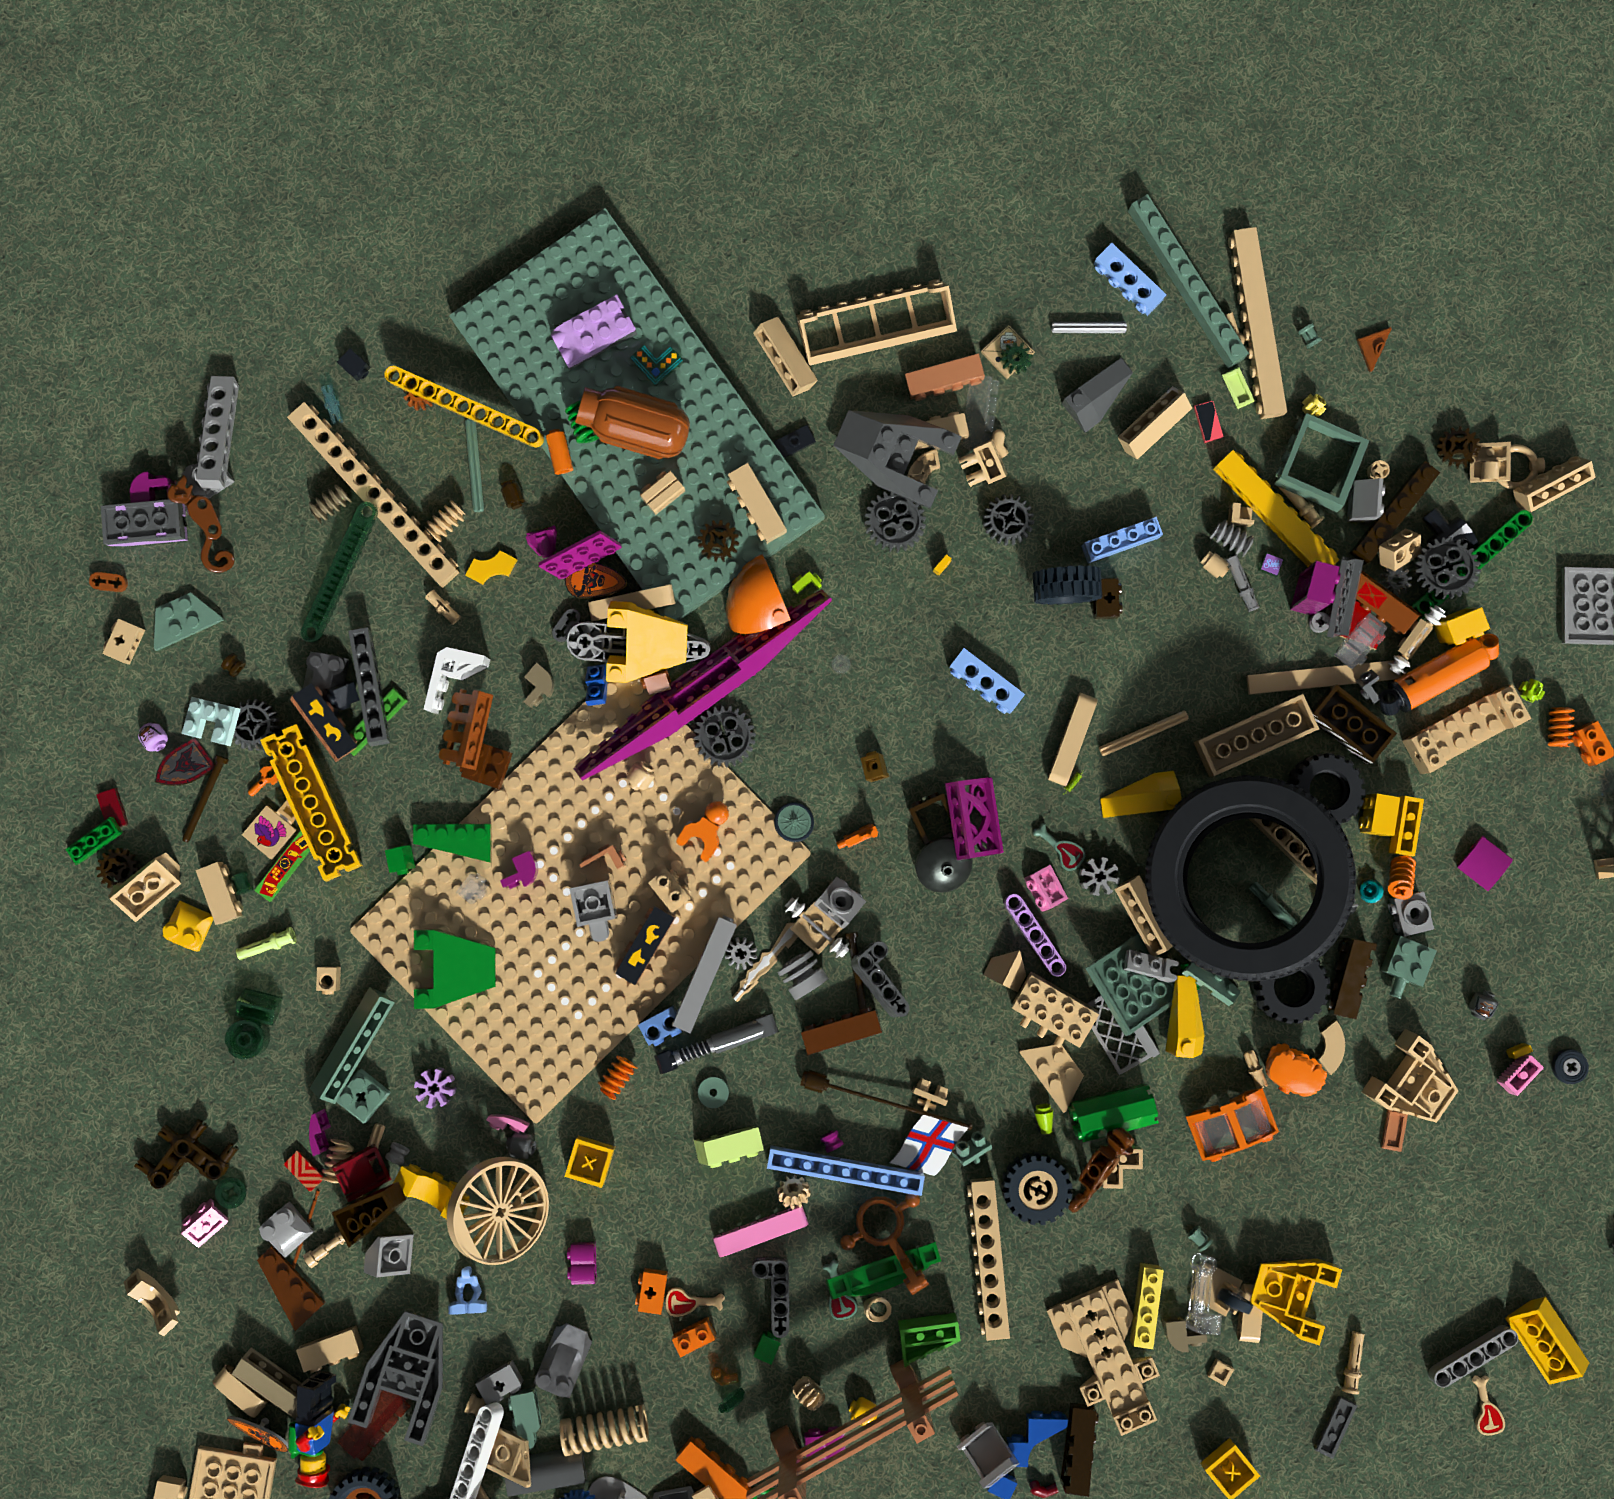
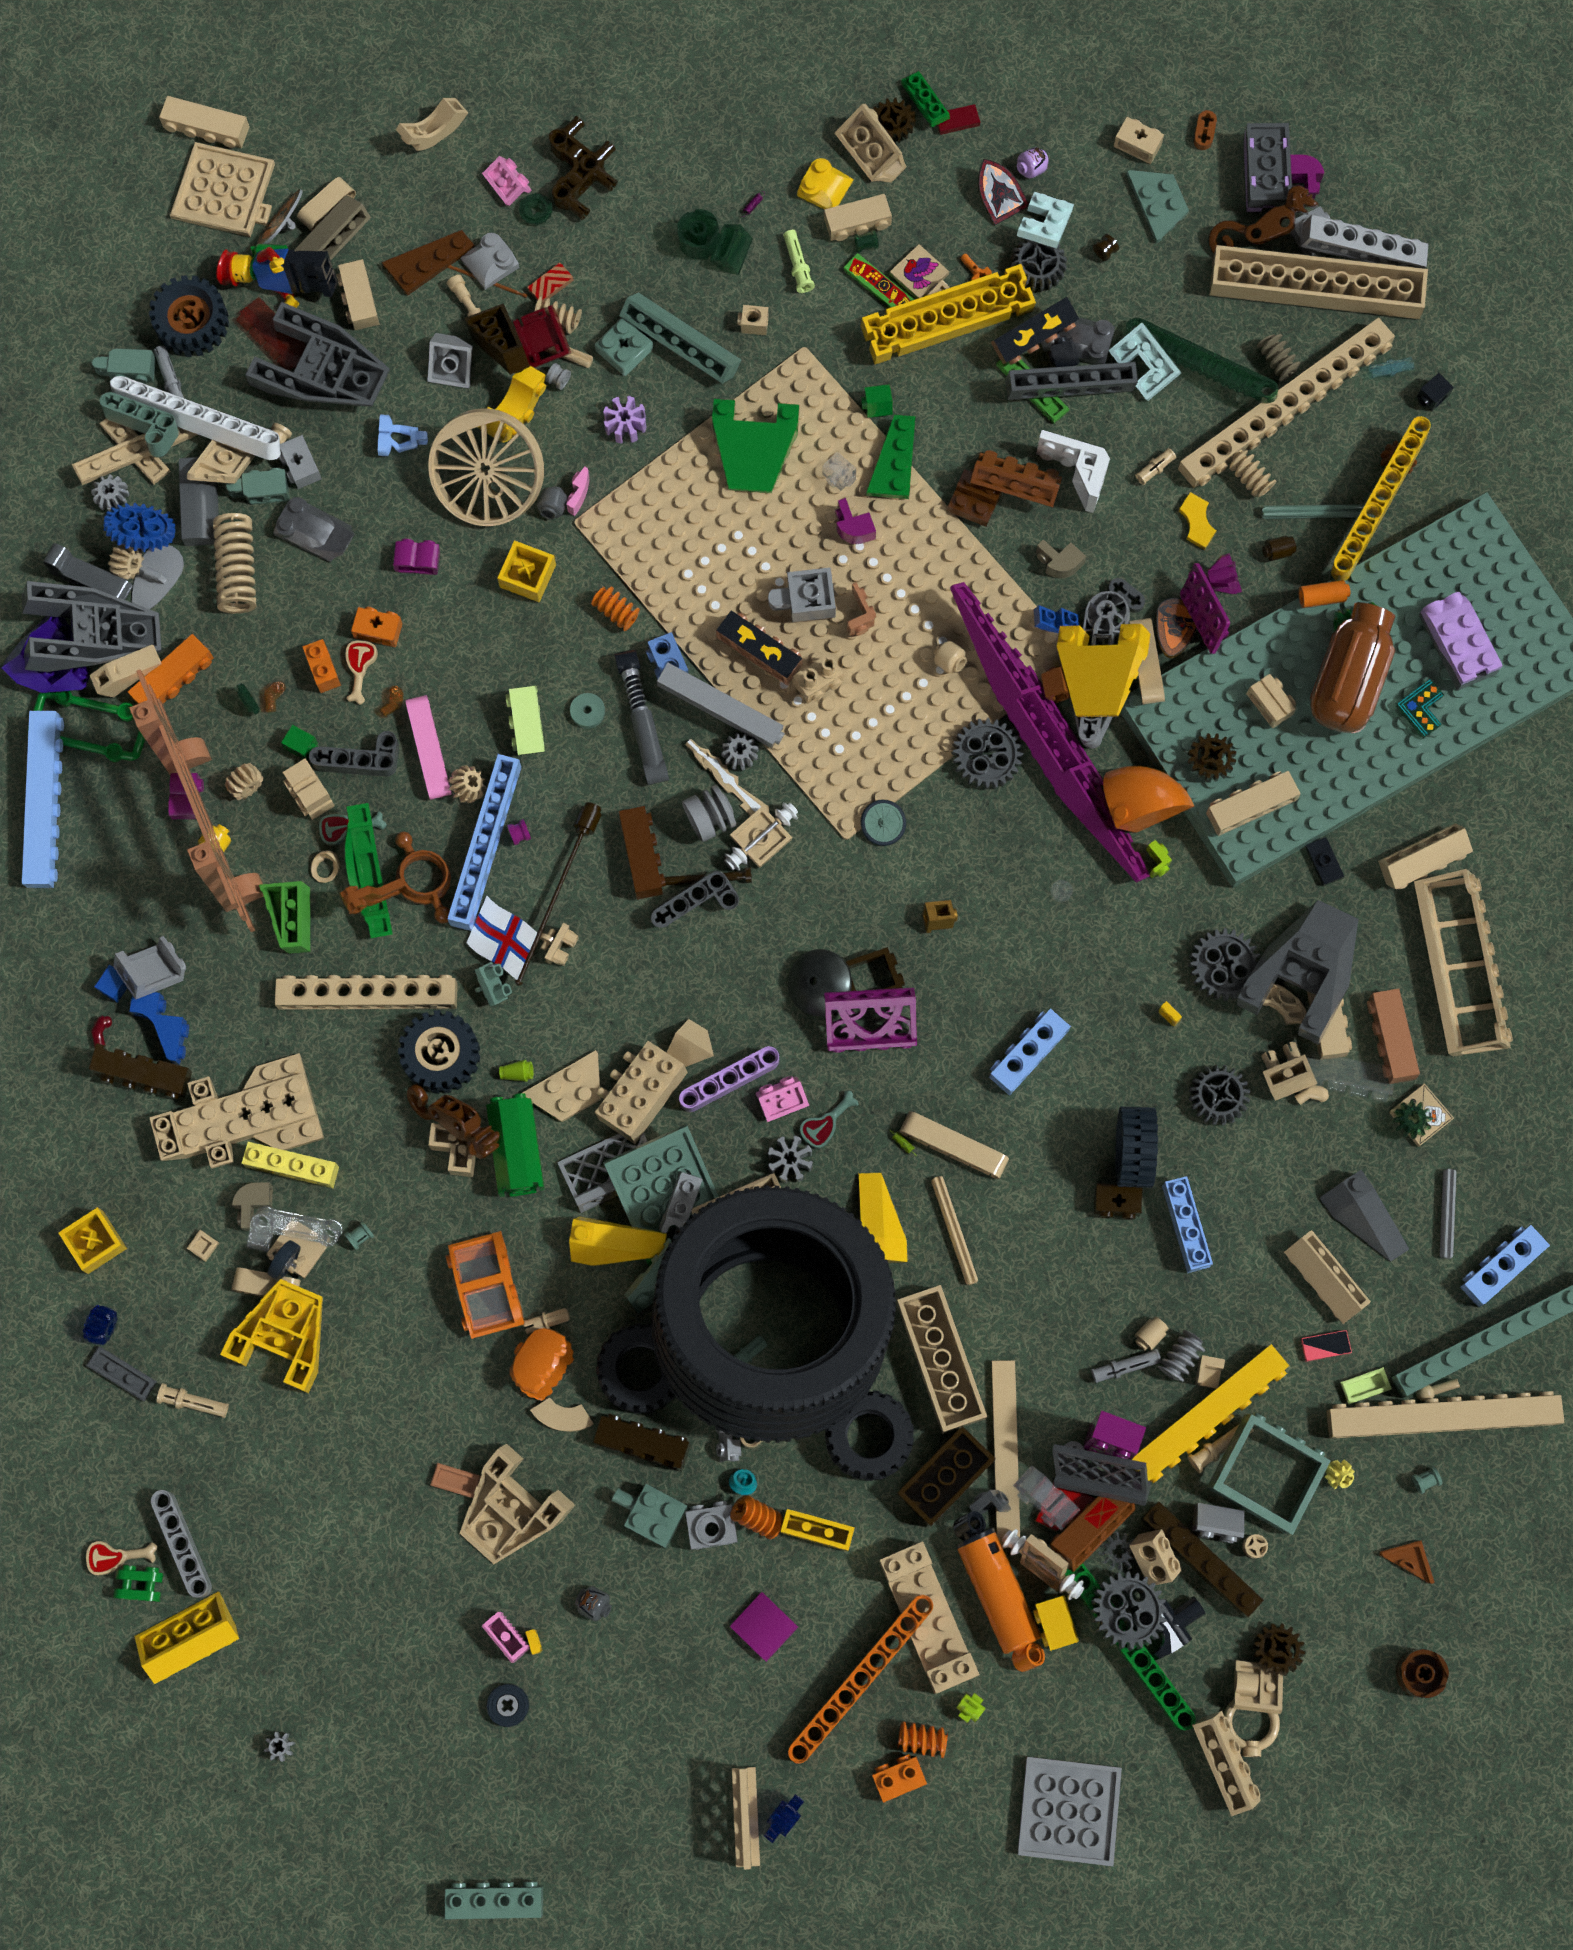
camera: 100 degrees right, 10 degrees down
(204, 797) = (1000, 228): dark brown bar -> none
(210, 990) = (753, 203): none -> magenta piece
(255, 472) = (1318, 282): none -> tan brick
(317, 1137) = (591, 295): magenta slope -> none
(327, 625) = (1161, 367): none -> light aqua plate
(706, 829) = (882, 722): orange piece -> none
(719, 1265) = (395, 701): none -> clear orange arm
(812, 1334) = (307, 789): none -> tan brick
(842, 893) = (799, 864): light grey brick -> none
(858, 836) = (860, 891): orange piece -> none
(1271, 564) = (1147, 1404): tile -> none
(1301, 1452) = (100, 1325): none -> clear blue gear
(1379, 814) = (834, 1496): yellow brick -> none
(1460, 342) = (1435, 1676): none -> reddish brown brick
(1518, 1382) = (129, 1574): none -> green brick
(1529, 782) = (851, 1685): none -> orange beam

